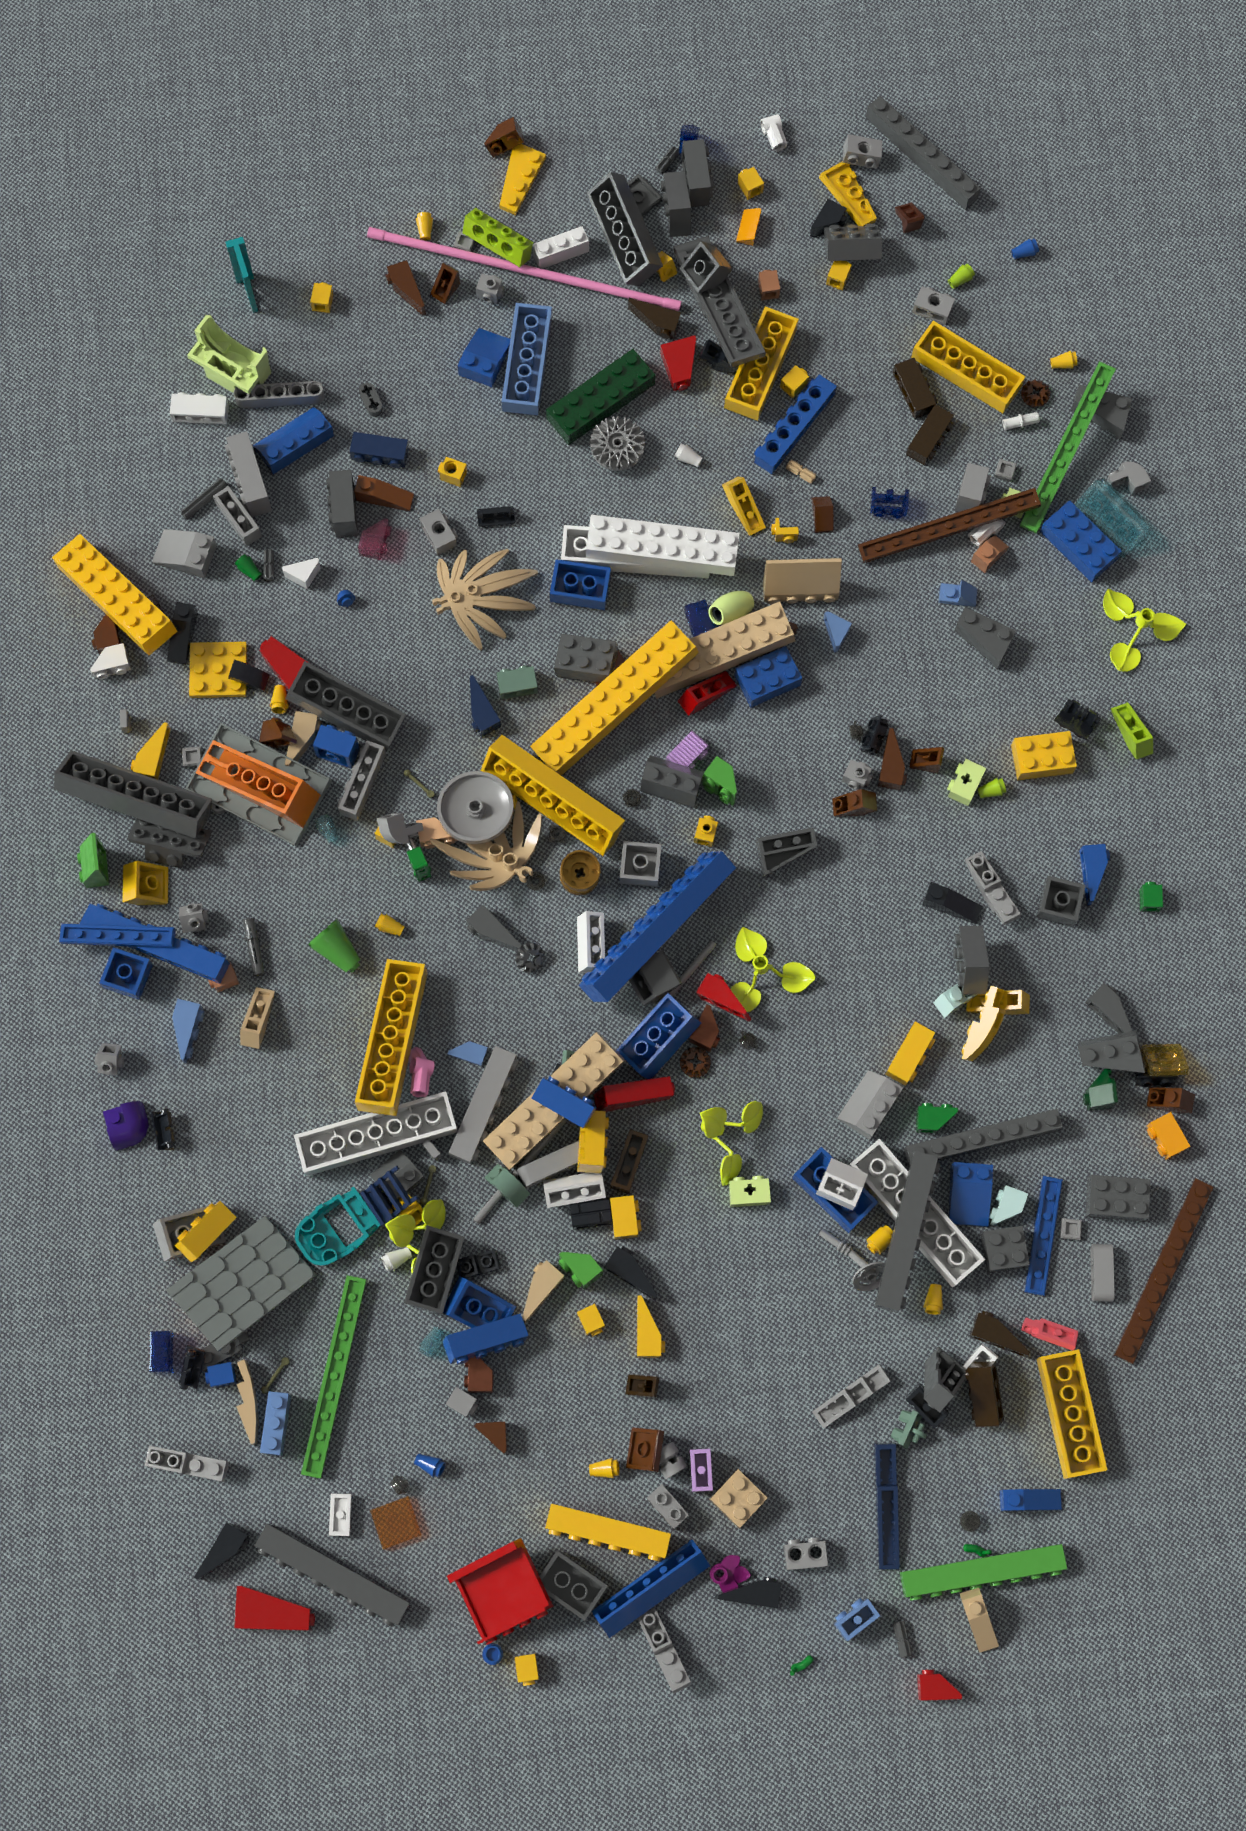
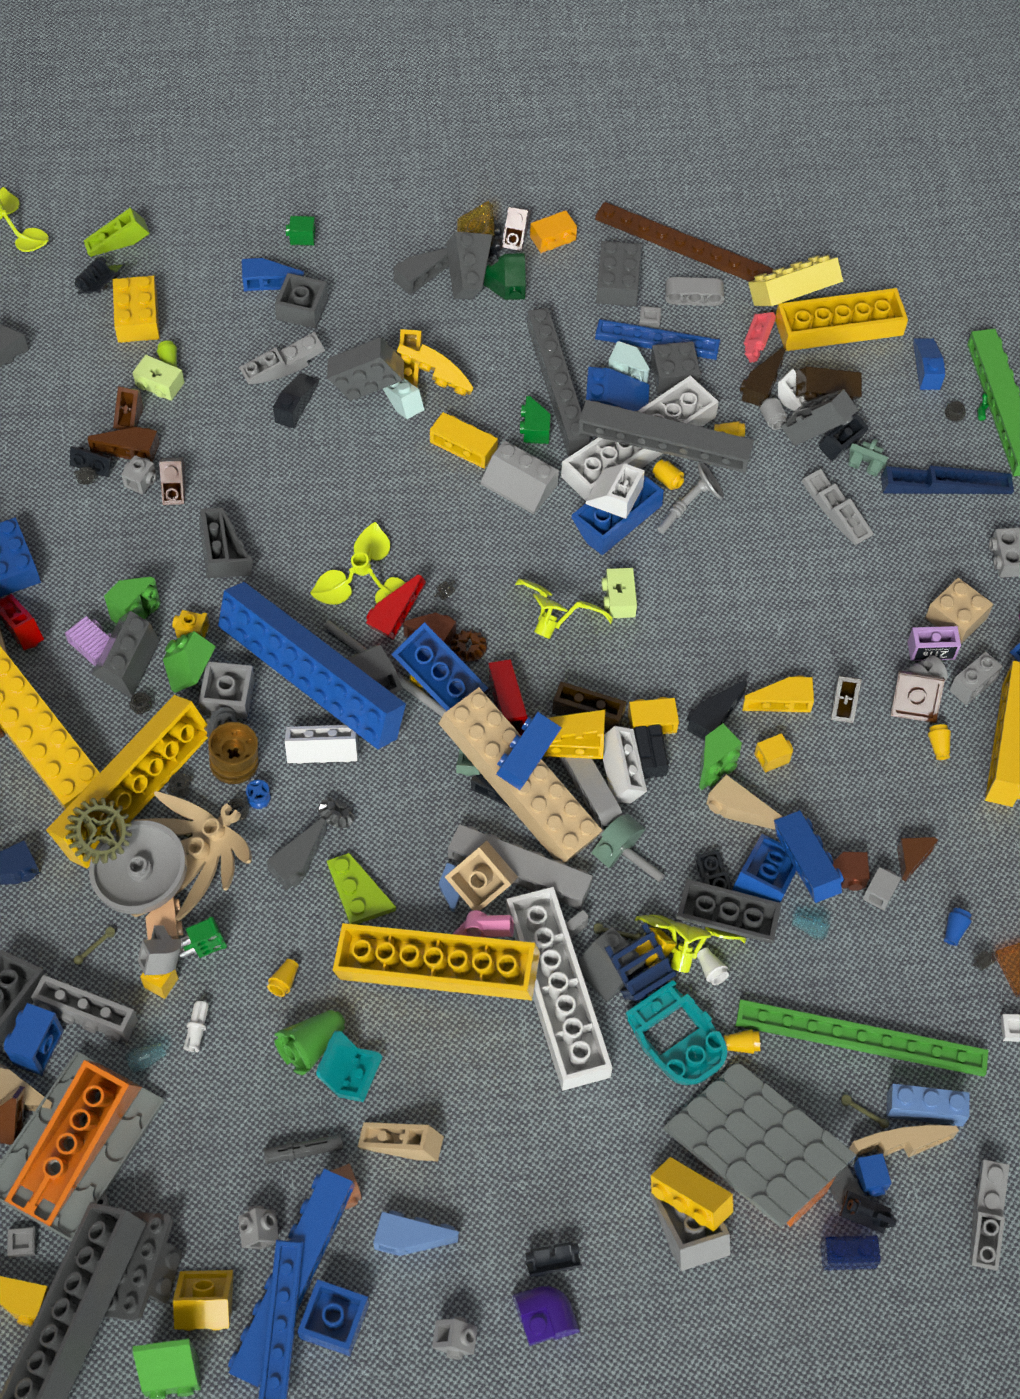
camera: 90 degrees left, 15 degrees down
(312, 975) = (348, 1068): none -> teal bracket
(332, 1282) = (744, 1041): none -> yellow cone
(350, 863) = (196, 1026): none -> white axle
(464, 977) = (357, 891): none -> lime wing
(465, 1071) = (481, 877): none -> tan brick
(482, 766) = (106, 836): none -> olive gear
(546, 893) = (257, 788): none -> blue wheel
(603, 856) = (224, 714): none -> dark grey gear
(664, 829) = (186, 660): none -> bright green slope
(956, 1341) = (773, 413): none -> light grey brick
(1112, 1370) = (795, 280): none -> light yellow brick

